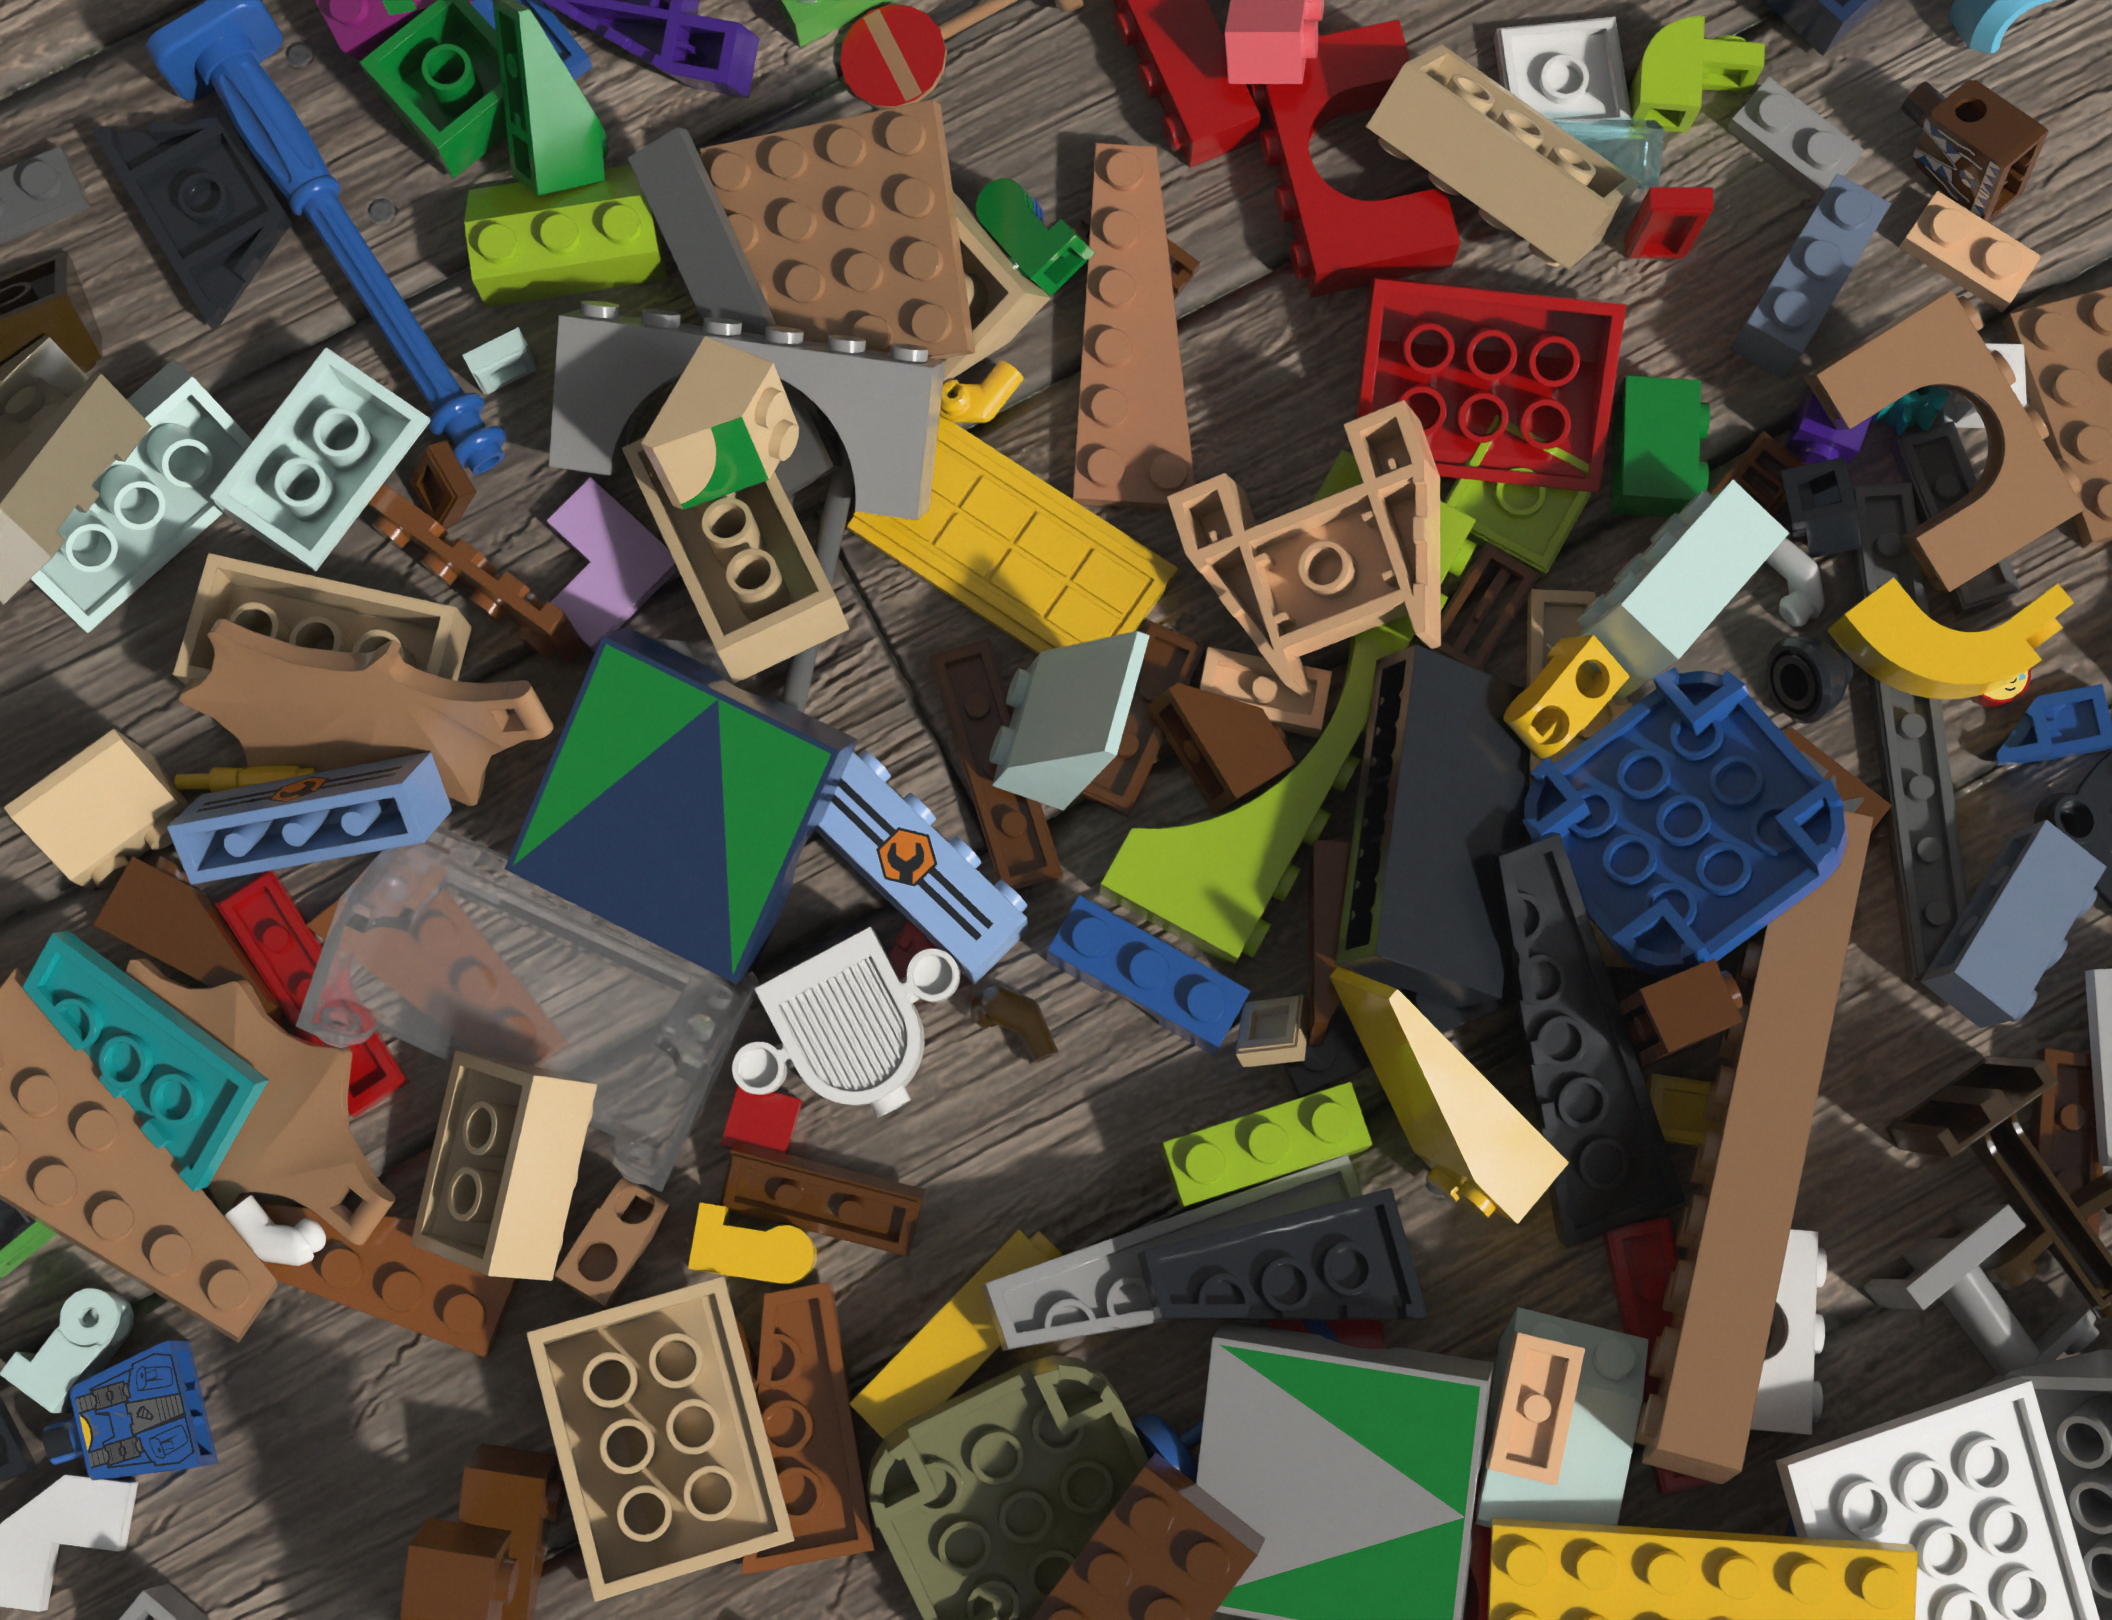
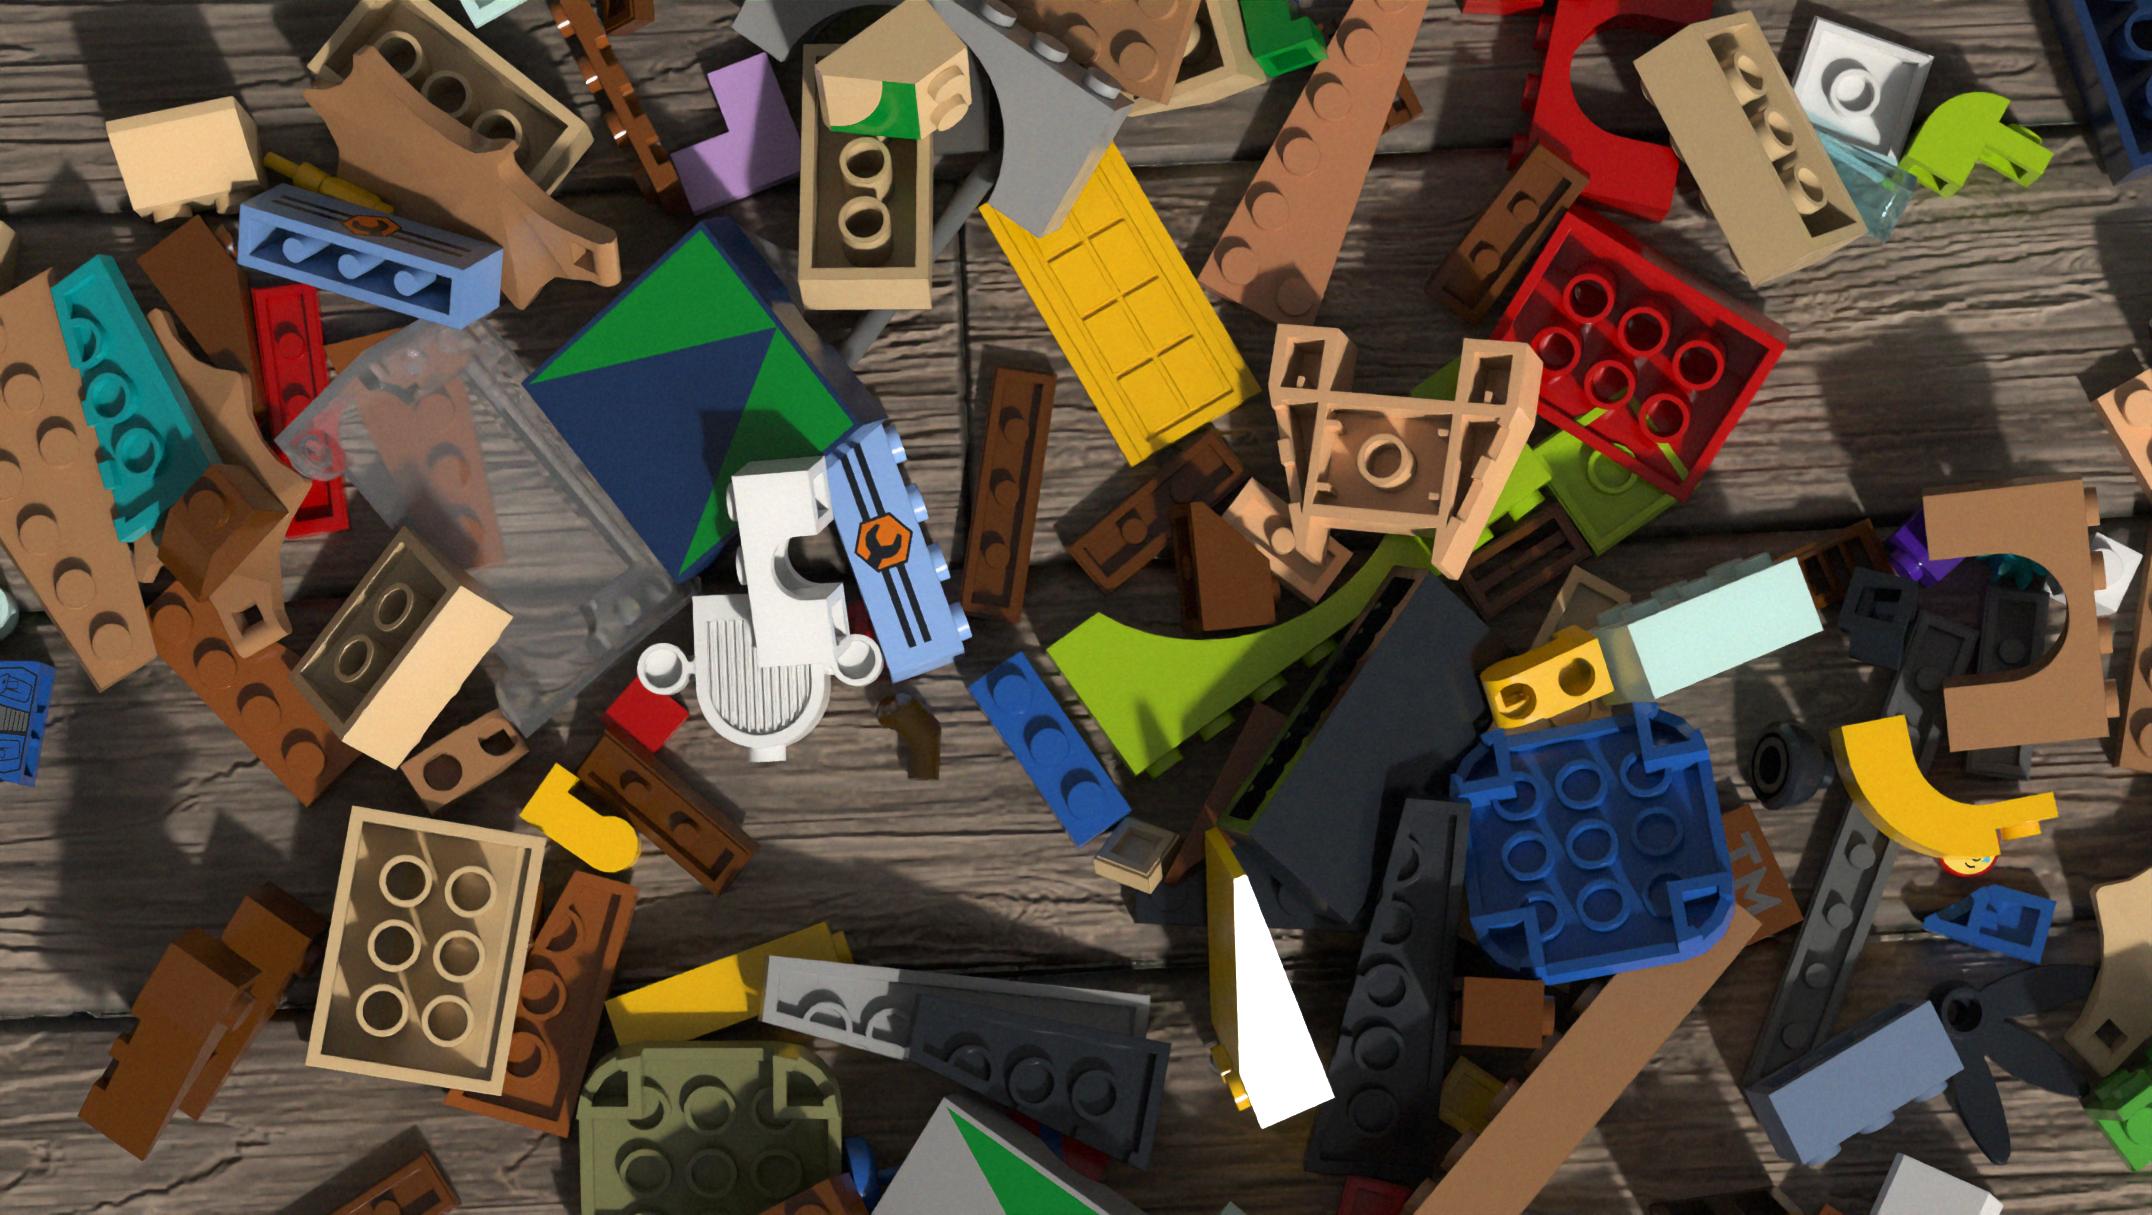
camera: 20 degrees right, 5 degrees up
(276, 1242) = (169, 619): white arm -> none
(278, 1133) = (217, 527): none -> reddish brown slope
(853, 959) = (788, 615): none -> white arch
(980, 401) = (1154, 147): yellow arm -> none
(1067, 718) = (1085, 485): light aqua slope -> none
(1265, 1145) = (1080, 952): lime brick -> none
(1328, 326) = (1507, 232): none -> reddish brown plate
(1657, 446) = (1760, 486): green brick -> none
(1668, 222) = (1873, 283): red tile -> none
(1794, 138) = (2044, 254): light grey plate -> none
(1803, 582) = (1831, 673): white arm -> none
(1810, 276) = (1984, 393): sand blue brick -> none

